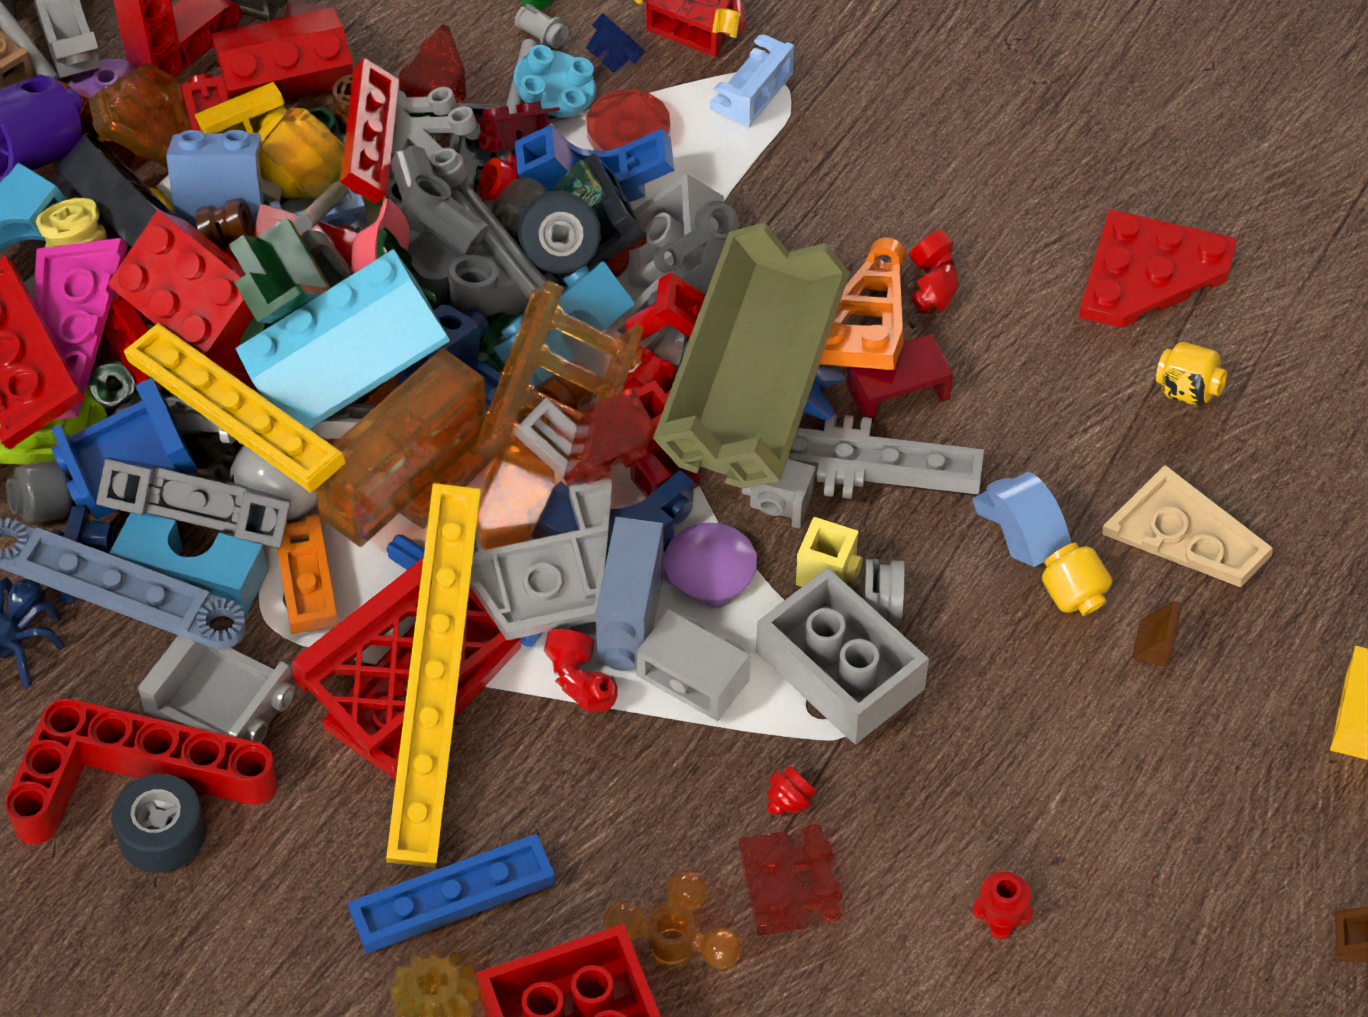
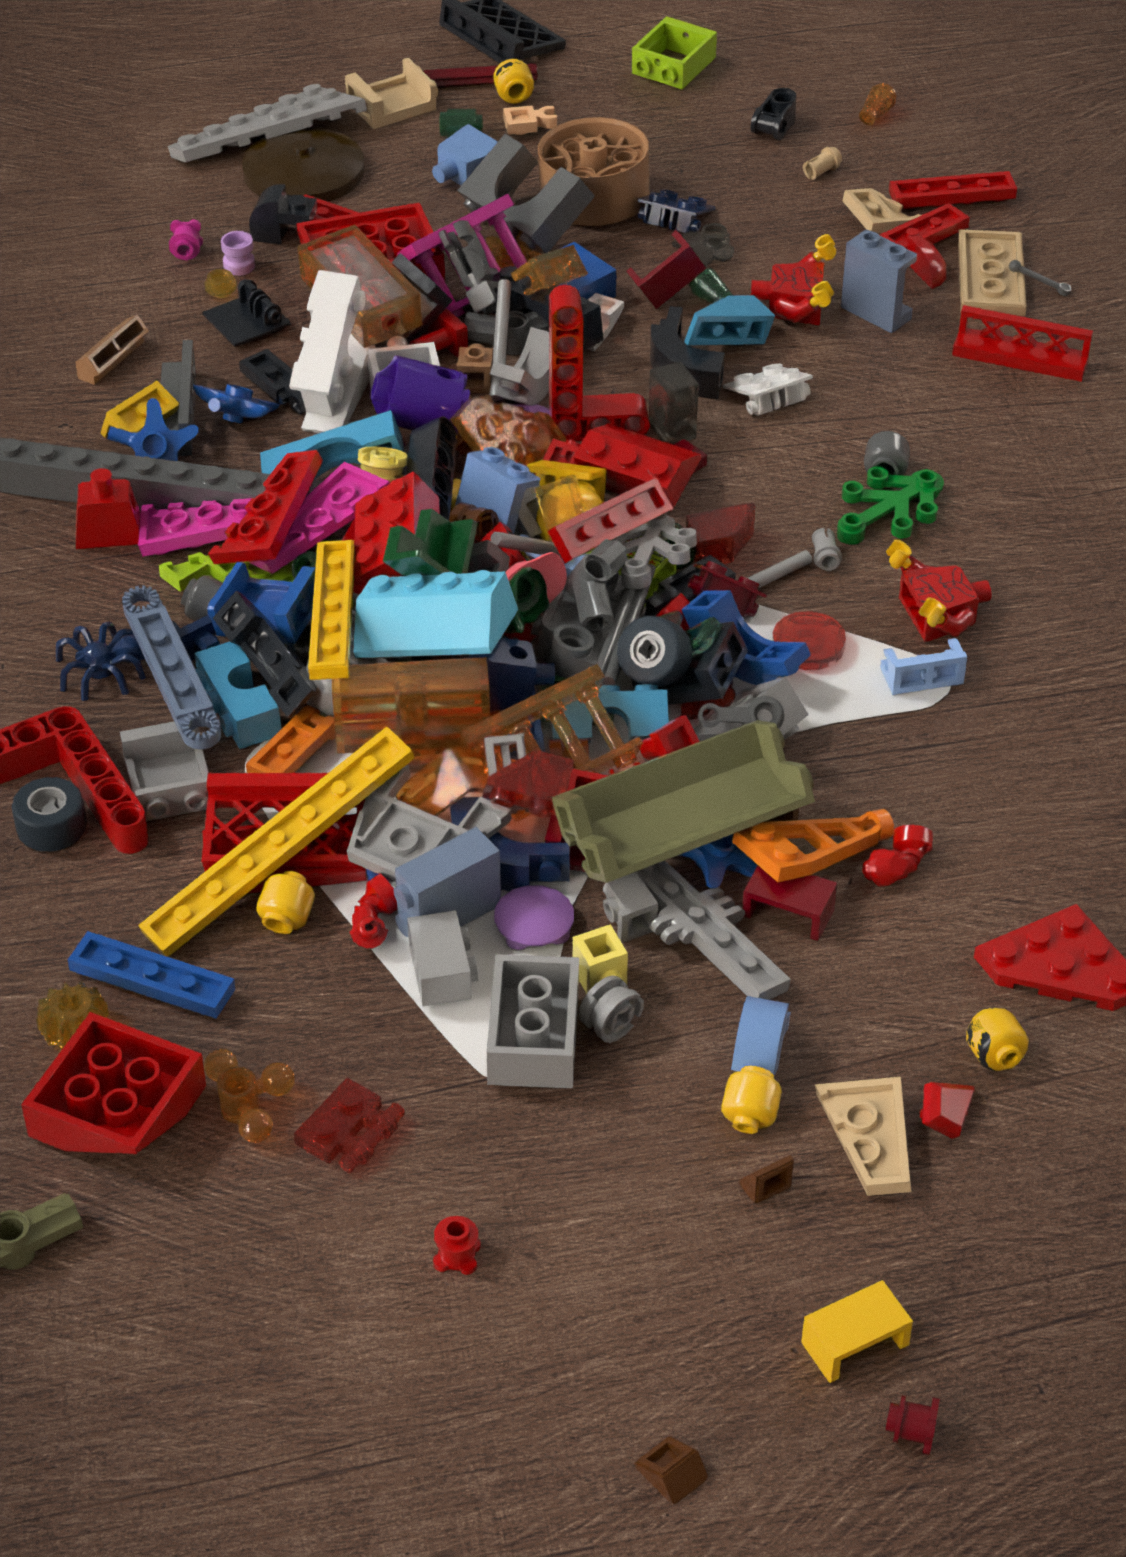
camera: 45 degrees right, 10 degrees down
(490, 725) = (285, 902): none -> yellow head
(555, 81) = (792, 584): medium azure dish -> none
(612, 37) = (859, 587): clear blue tile -> none
(788, 792) = (412, 1076): red plate -> none
(1218, 462) = (946, 1107): none -> red piece

